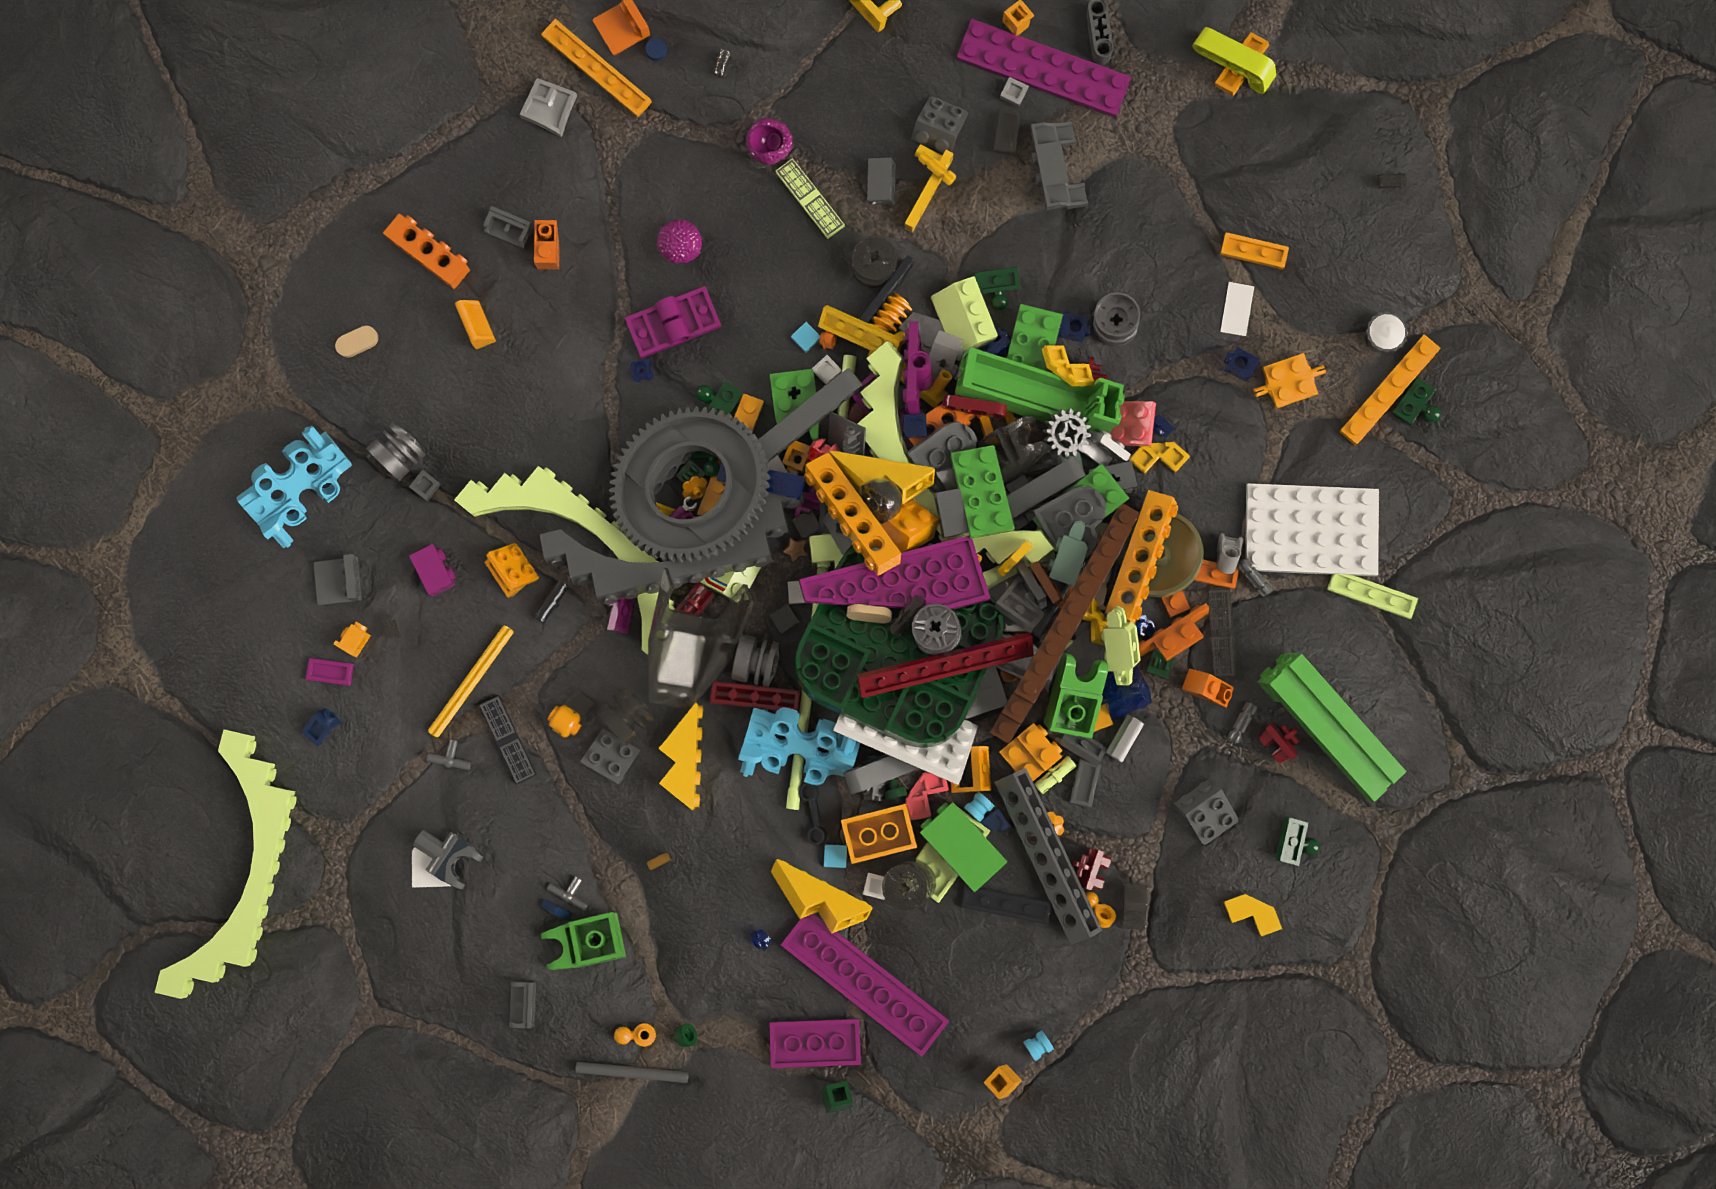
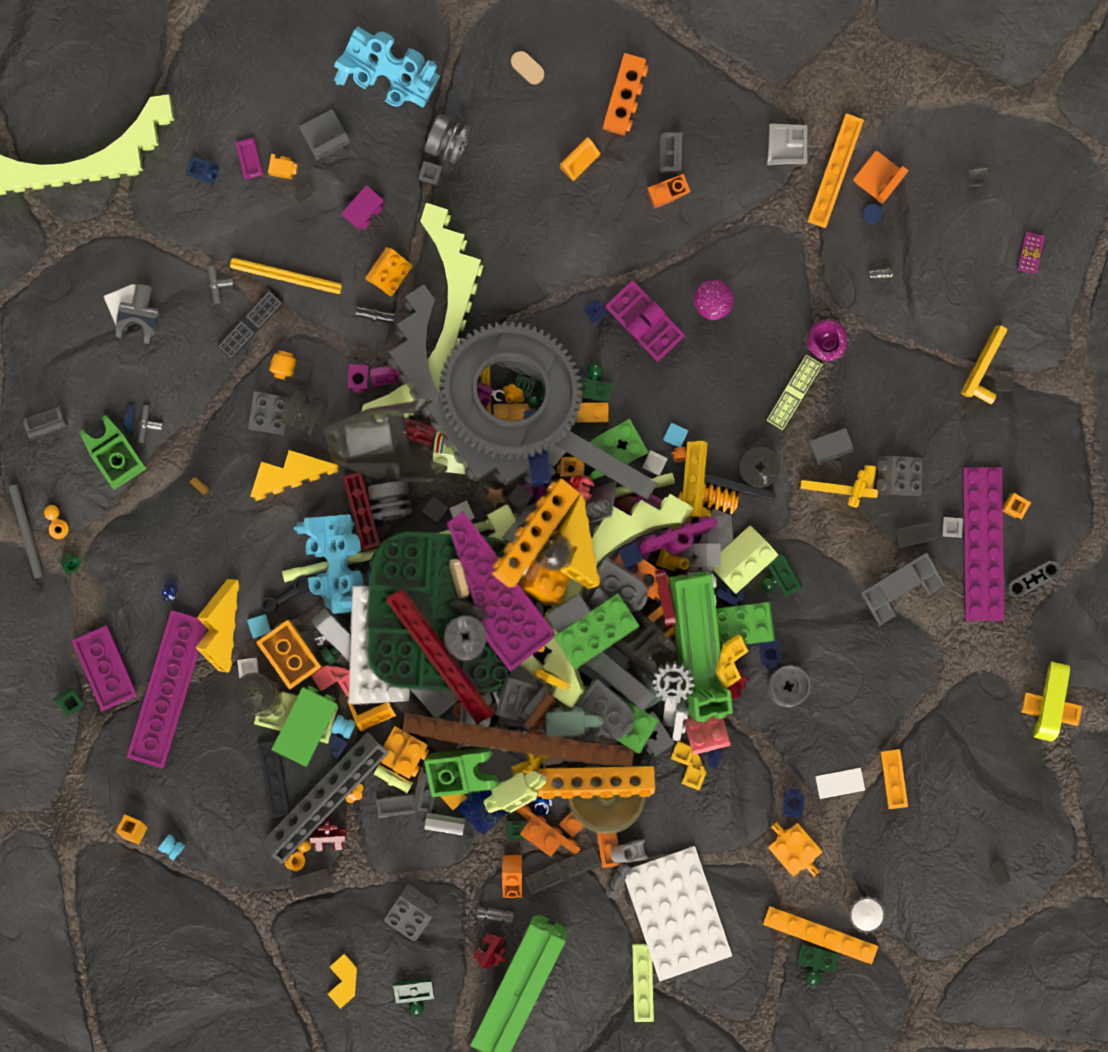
camera: 70 degrees right, 5 degrees up
(602, 641) = (358, 369): none -> magenta brick

